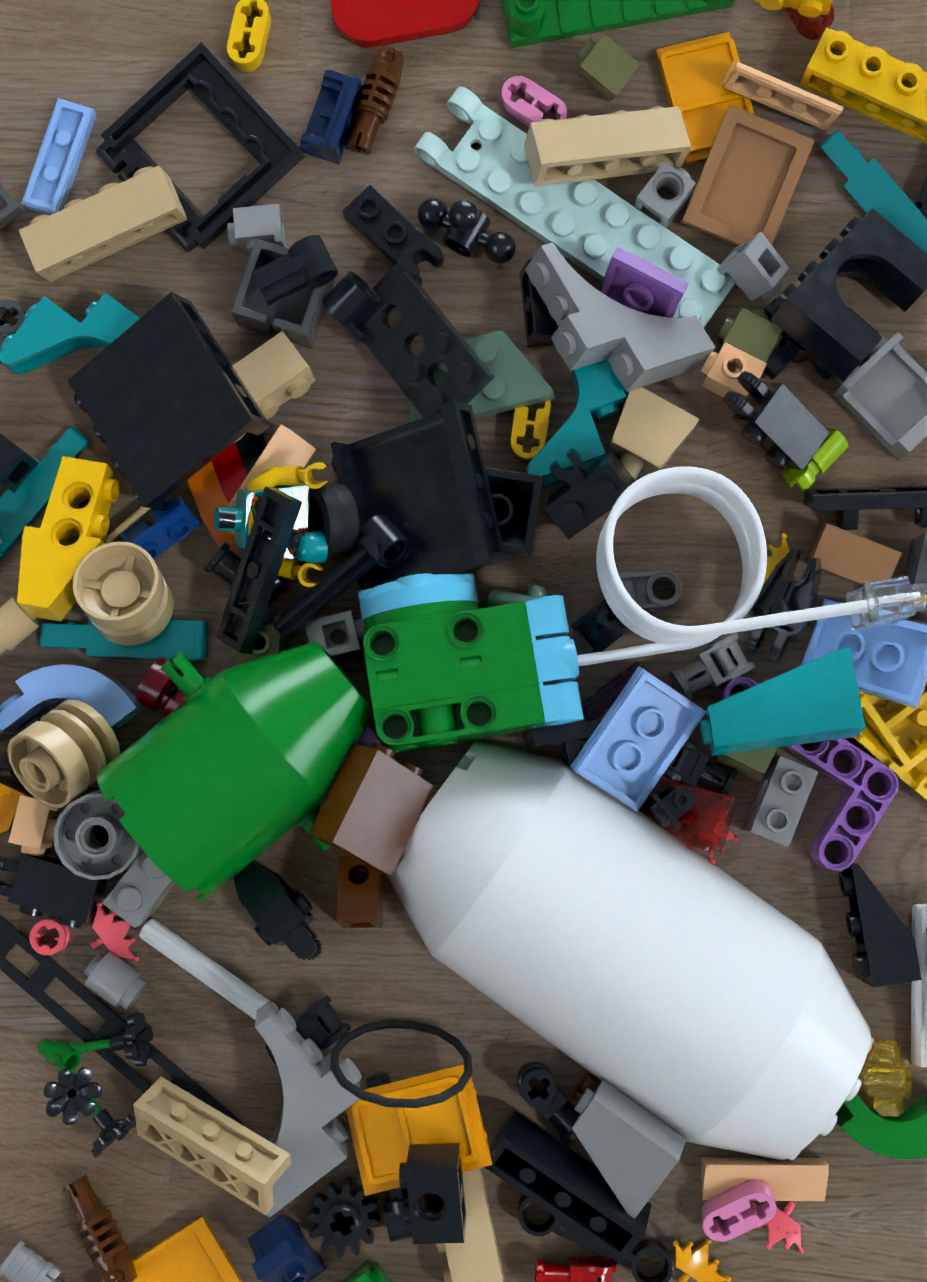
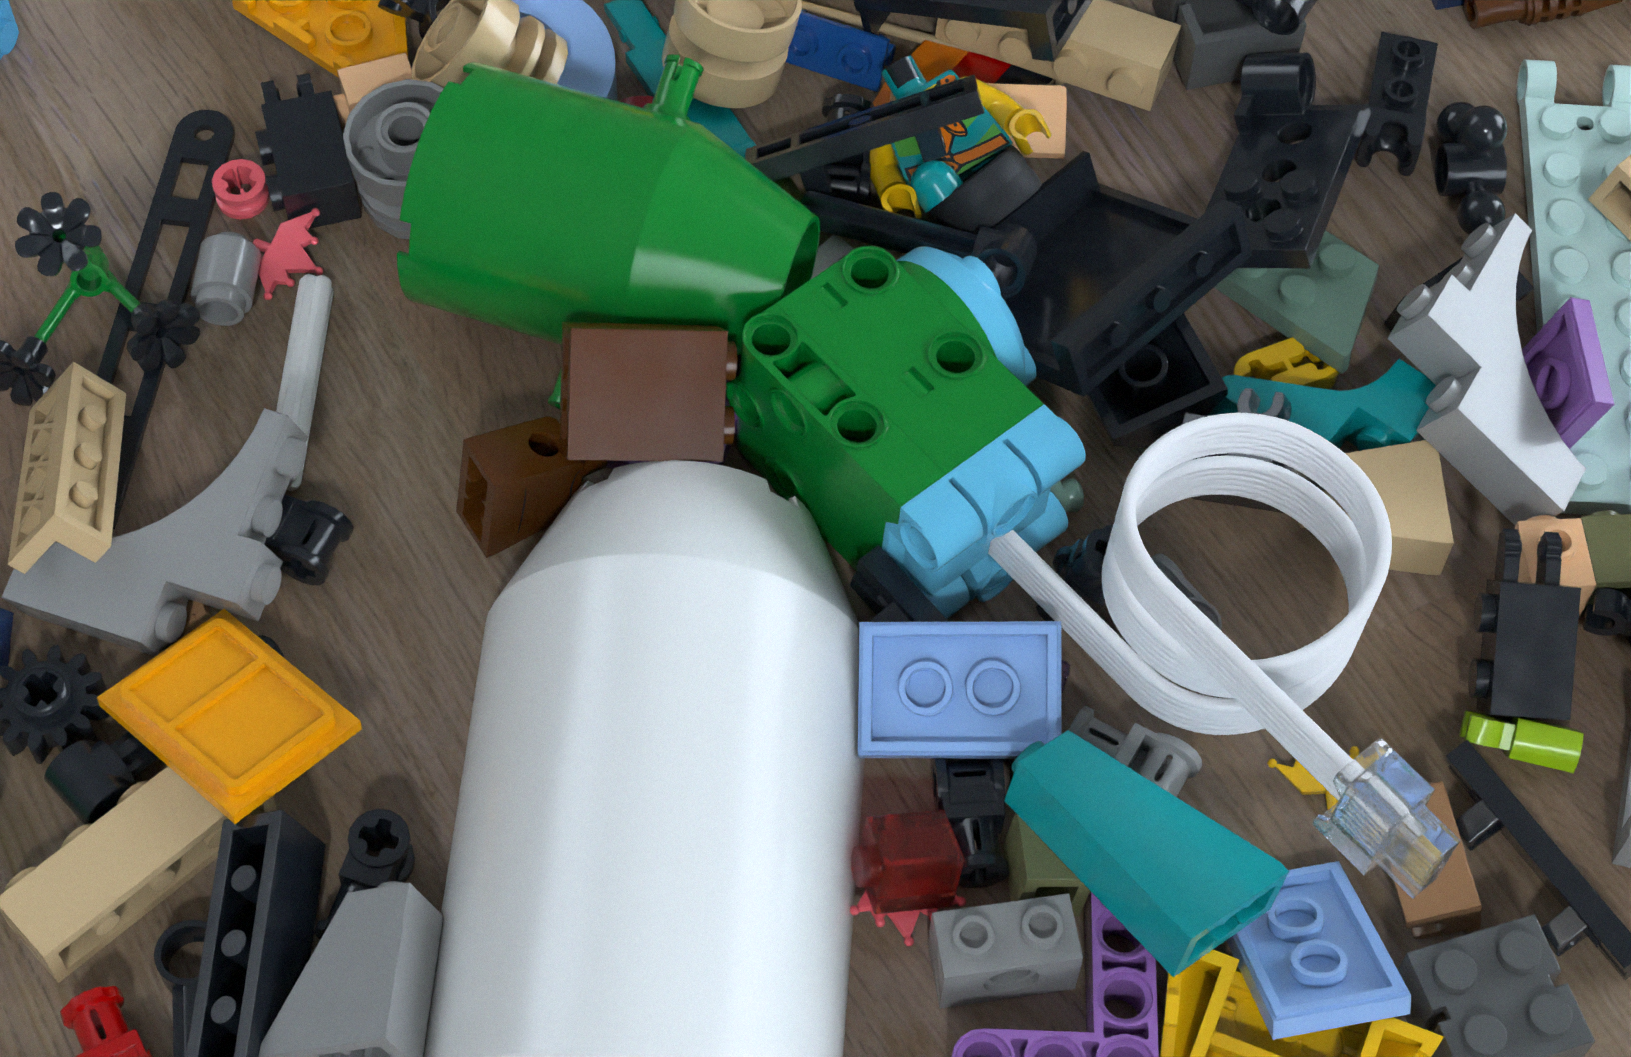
camera: 50 degrees right, 25 degrees down
(139, 891) = (359, 244): light grey hinge -> none
(278, 911) = (431, 408): black hinge -> none
(394, 1102) = (289, 642): black piece -> none
(440, 1215) = (142, 787): black brick -> none
(670, 806) = (895, 781): black hinge -> none
(785, 594) = (1271, 798): black hinge -> none

